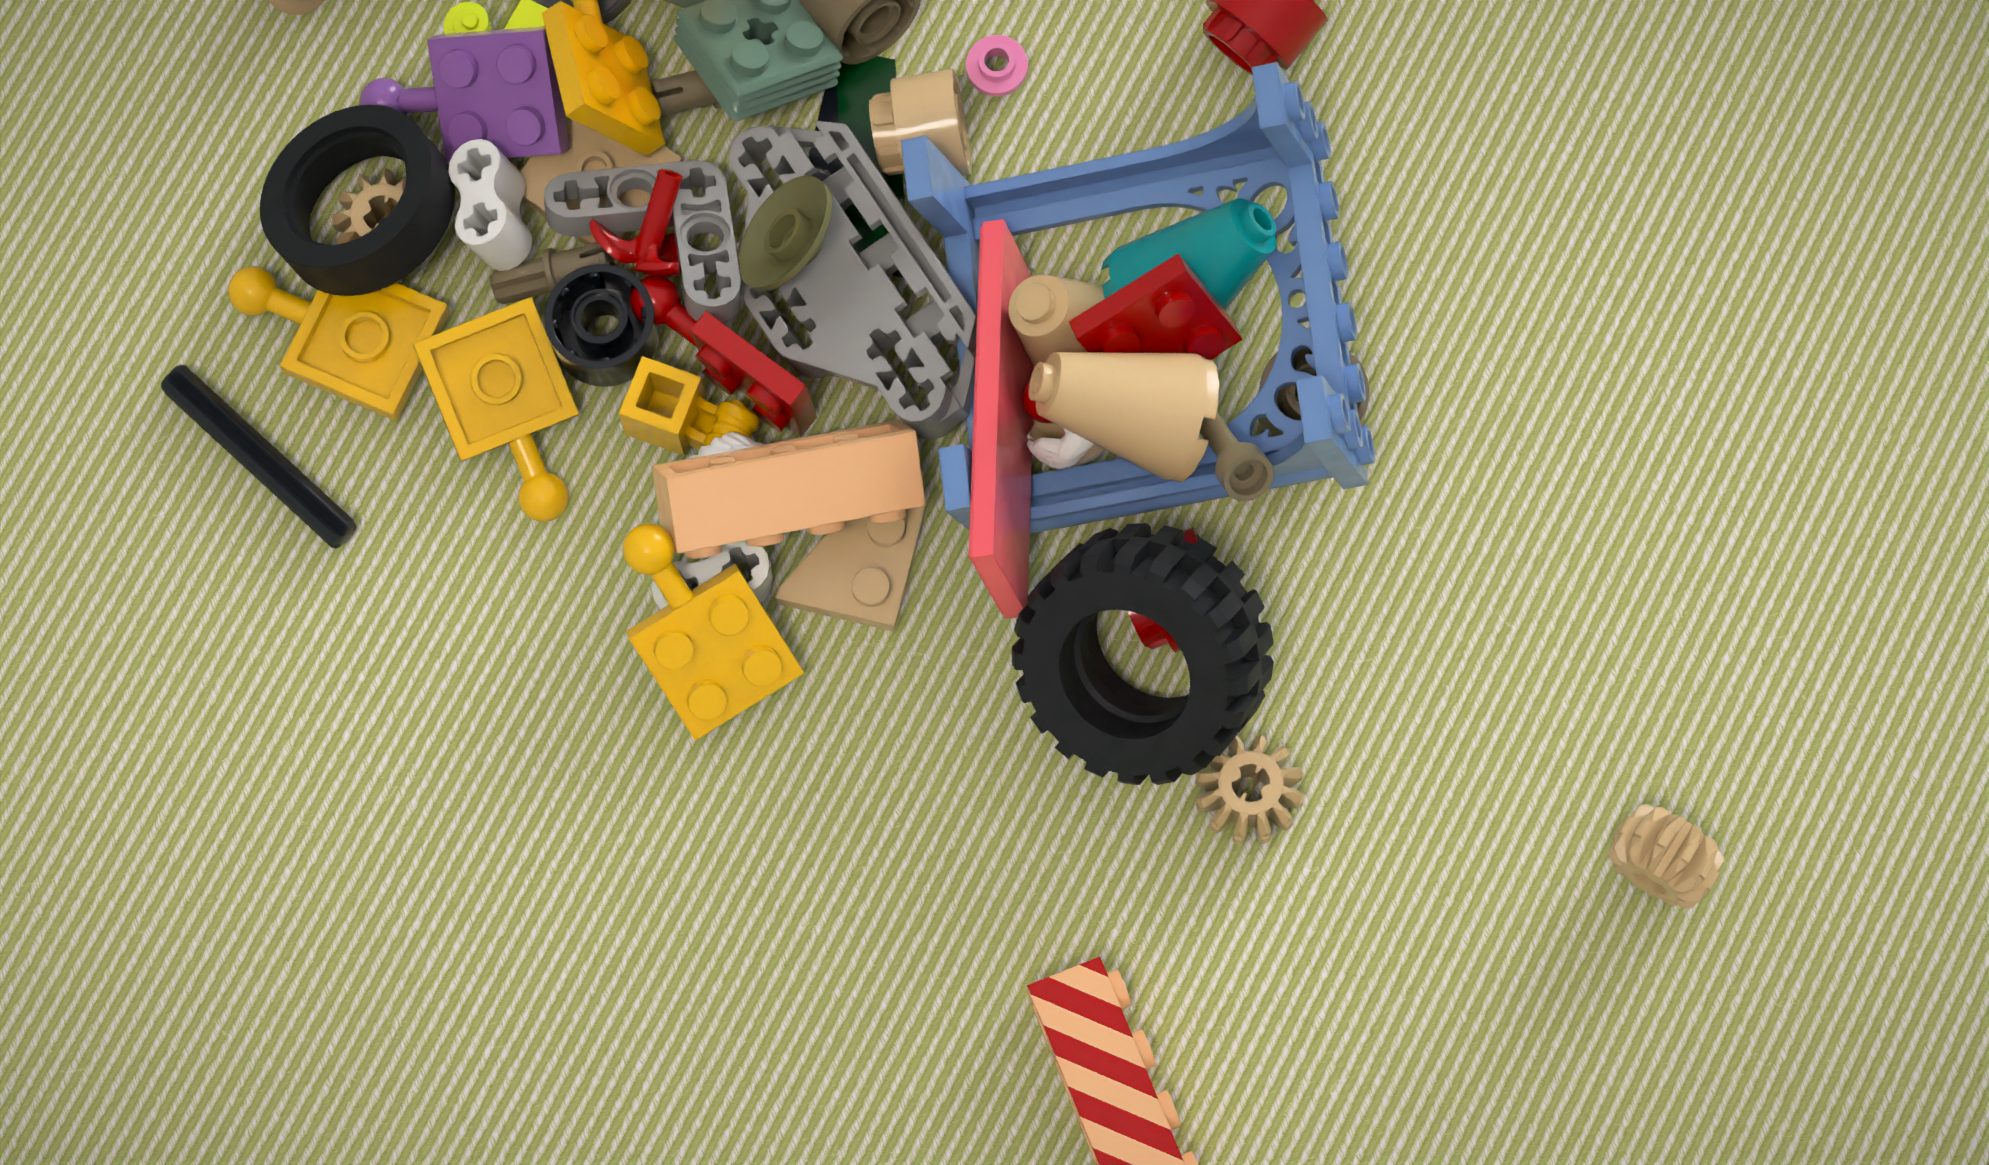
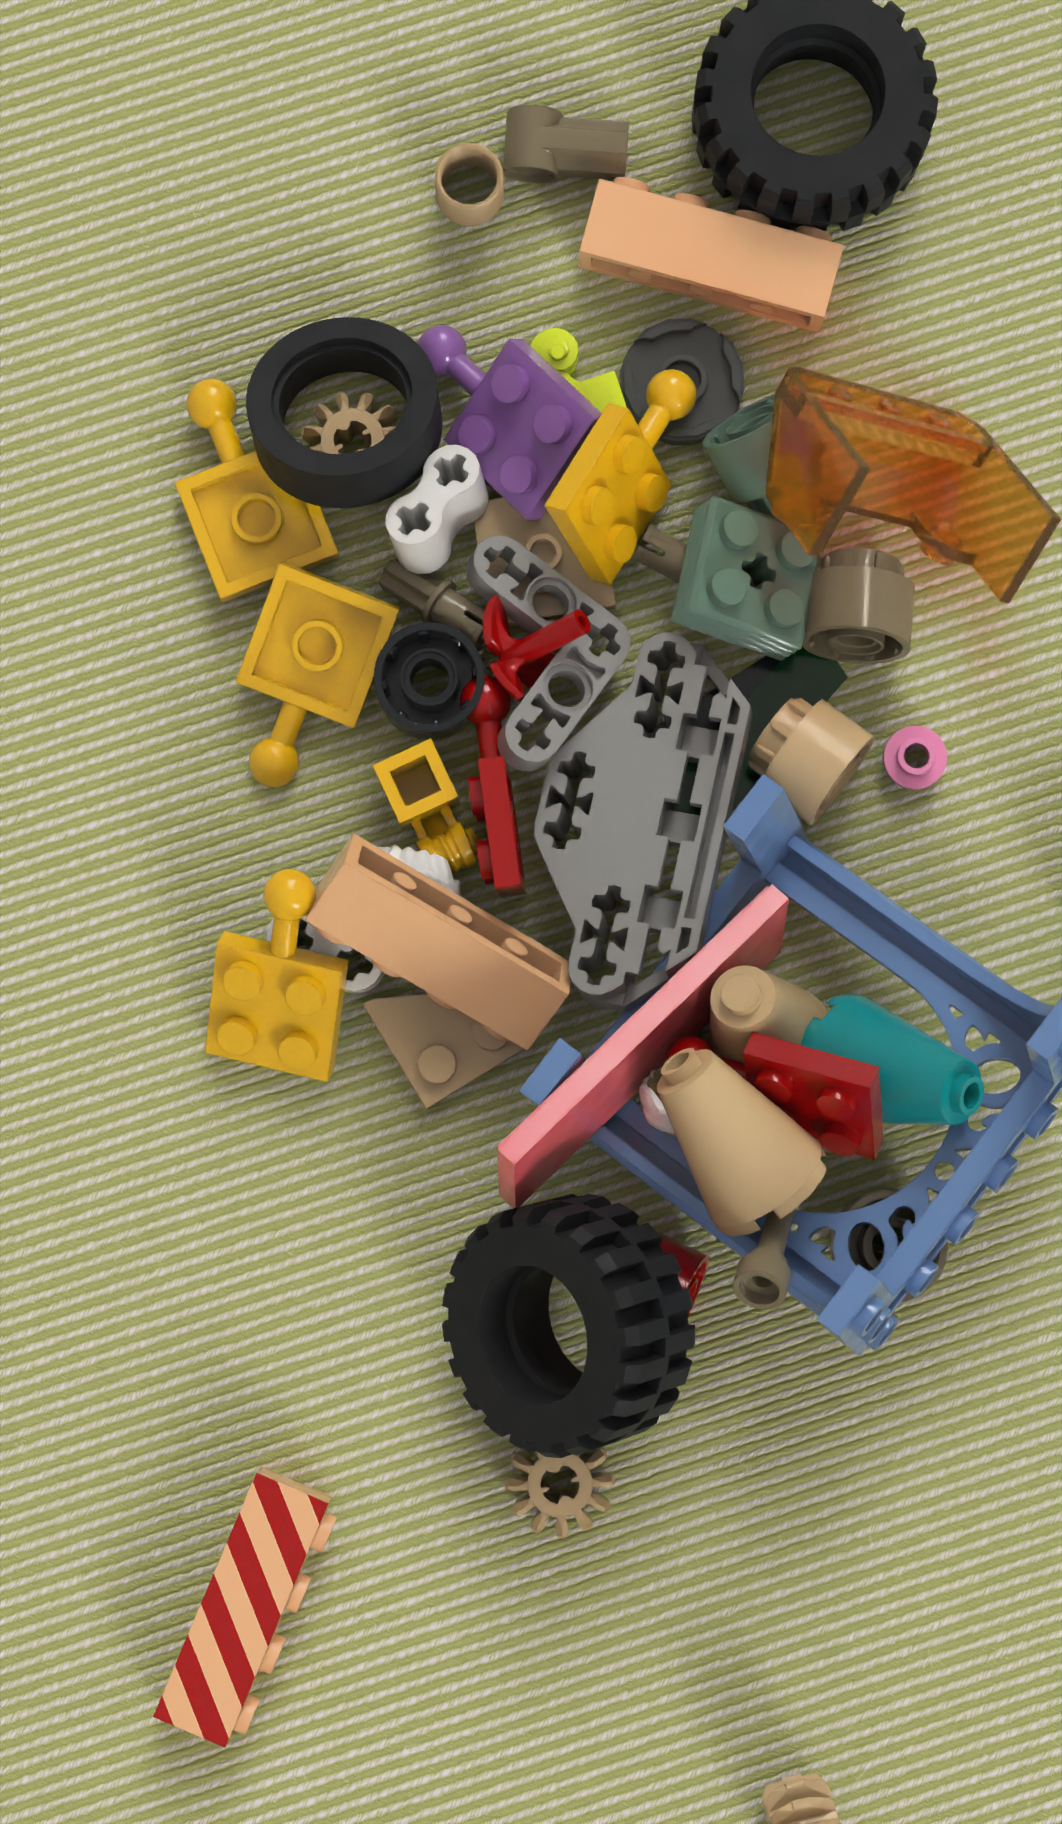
camera: 40 degrees right, 10 degrees up
(258, 456) = (99, 533): black axle -> none
(785, 233) = (620, 750): olive dish -> none

